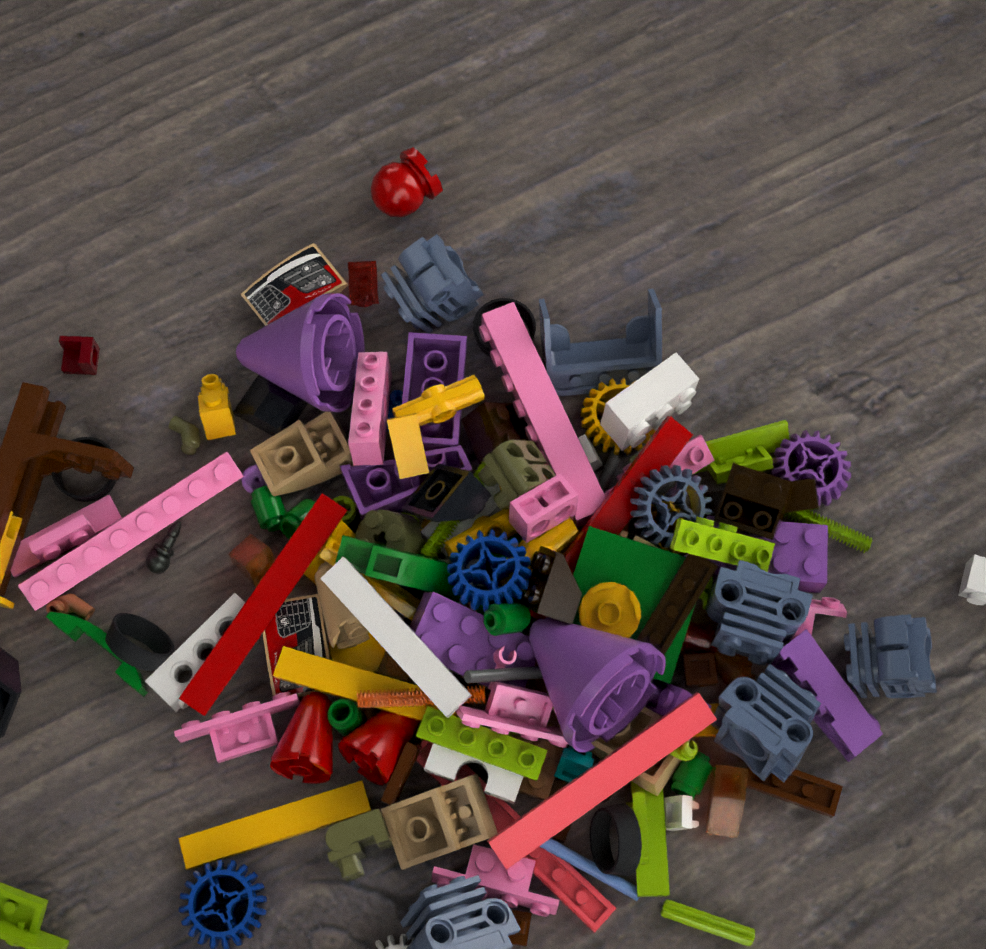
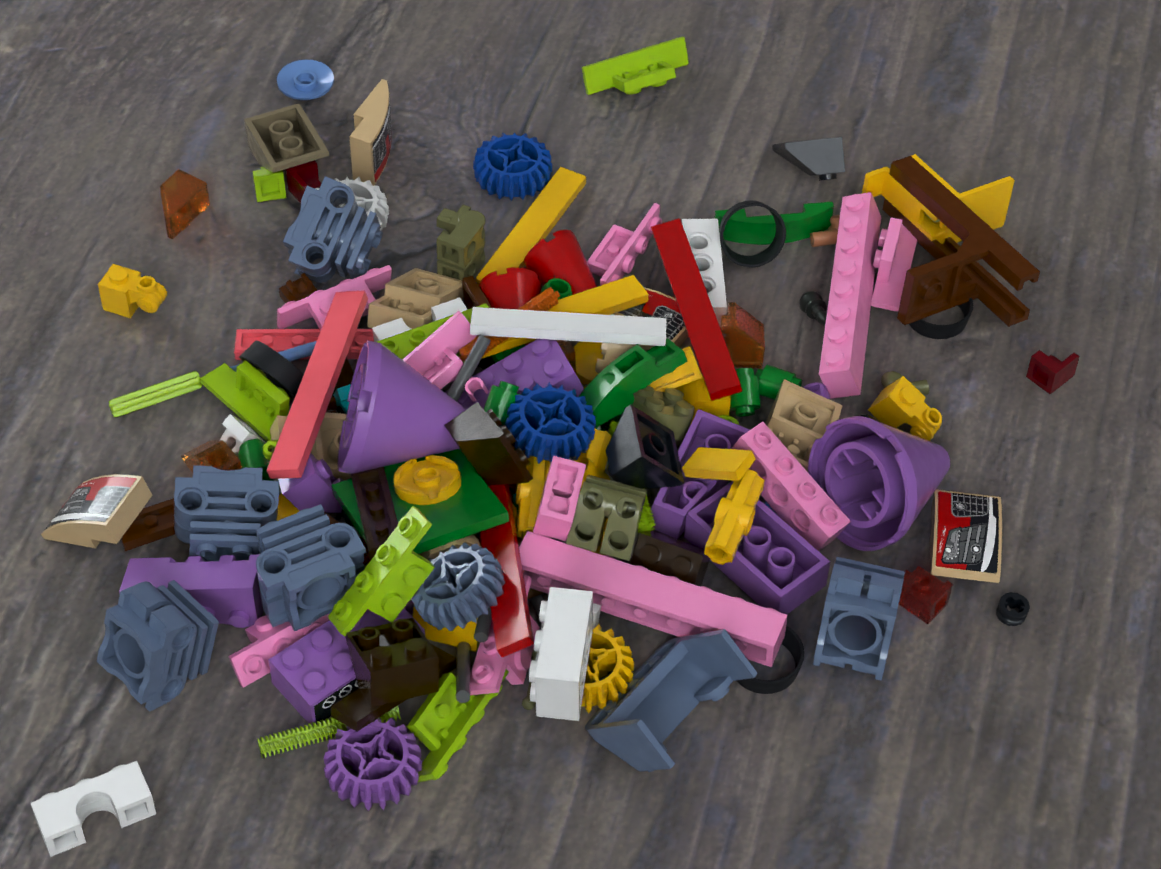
camera: 135 degrees right, 20 degrees down
(318, 225) = (1011, 617): none -> black bush
(401, 186) = (995, 692): red tile -> none
(715, 459) = (463, 672): none -> dark grey bar
(847, 825) = (99, 510): none -> slope

